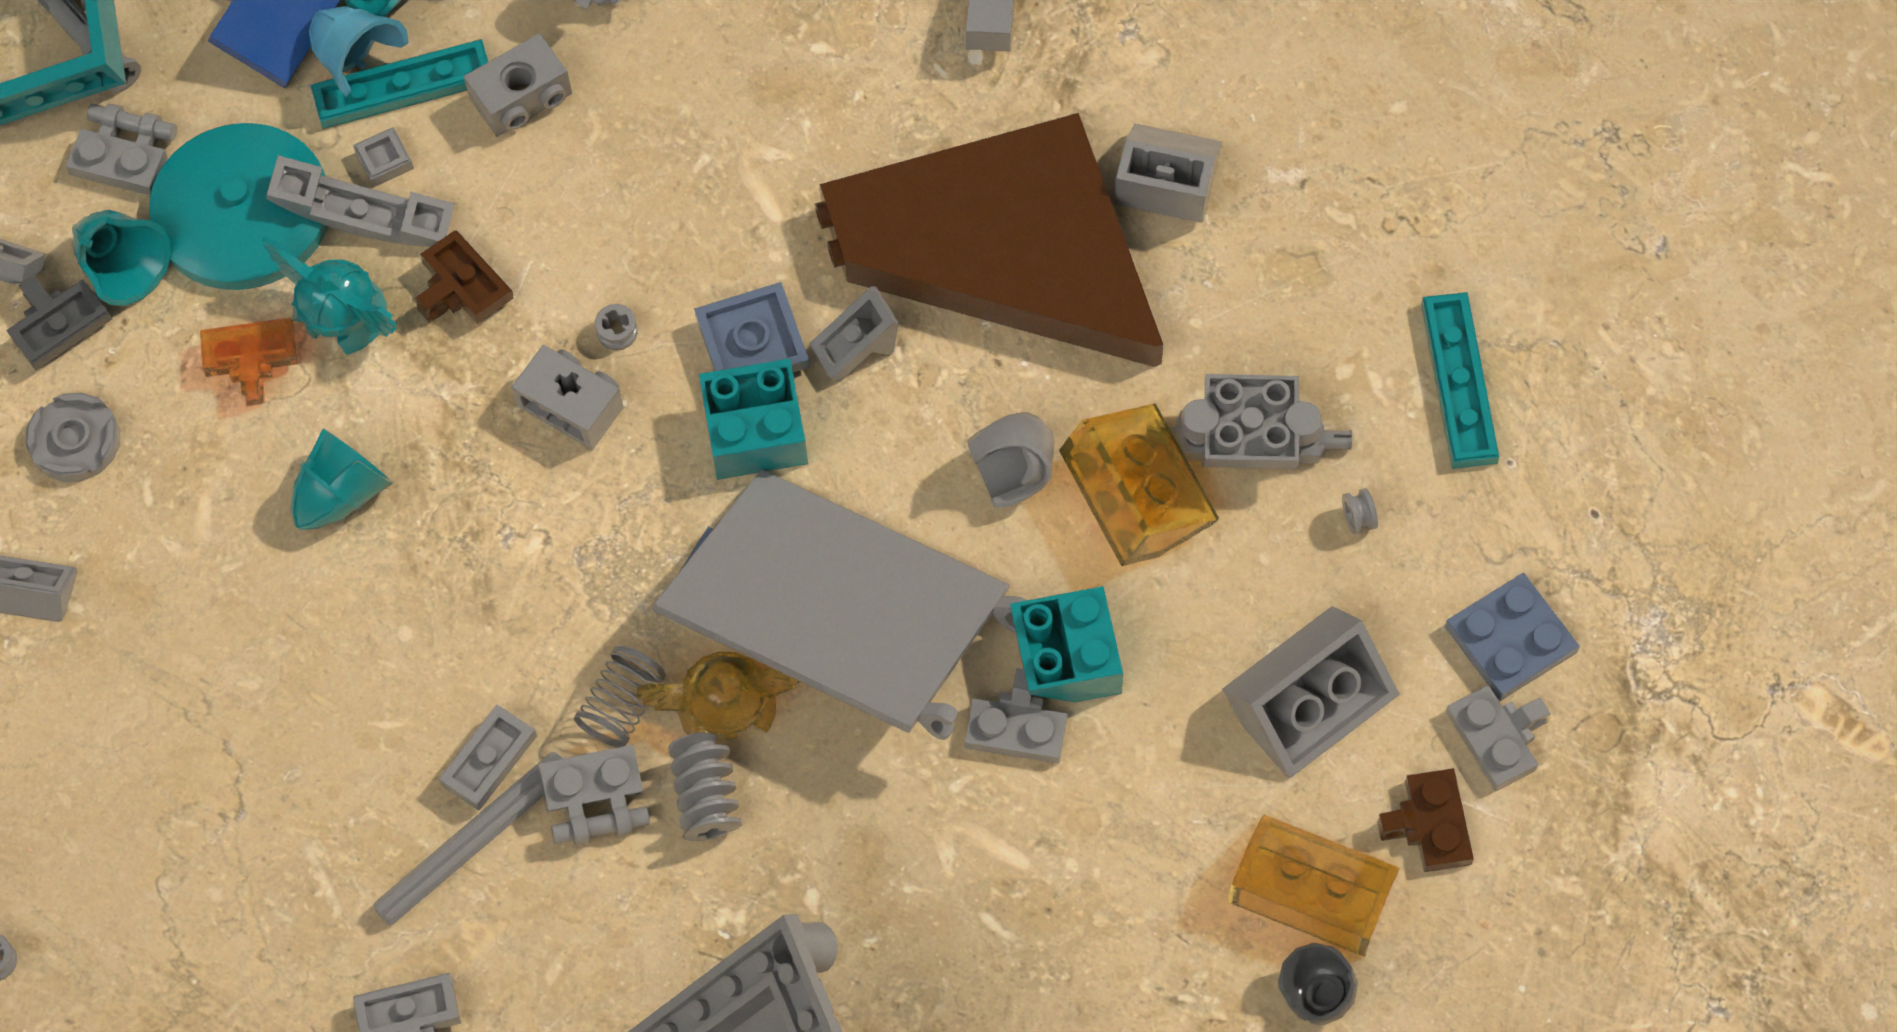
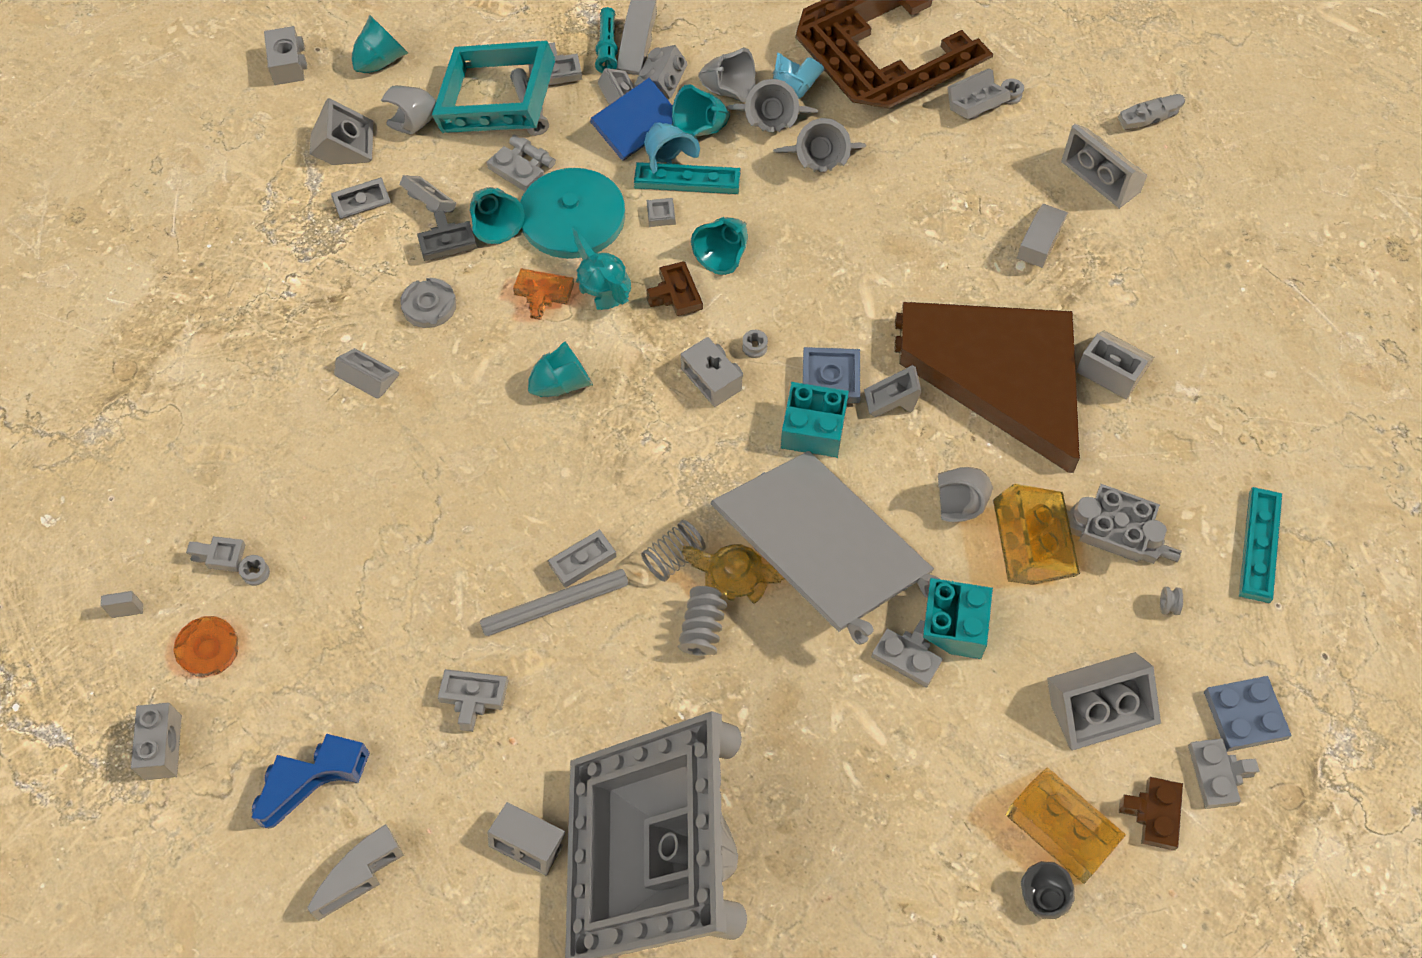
camera: 20 degrees right, 5 degrees down
(356, 208) = (633, 233): light grey slope -> none
(503, 183) = (720, 244): none -> teal helmet
(525, 65) = (751, 196): light grey brick -> none
(590, 780) = (638, 593): light grey plate -> none

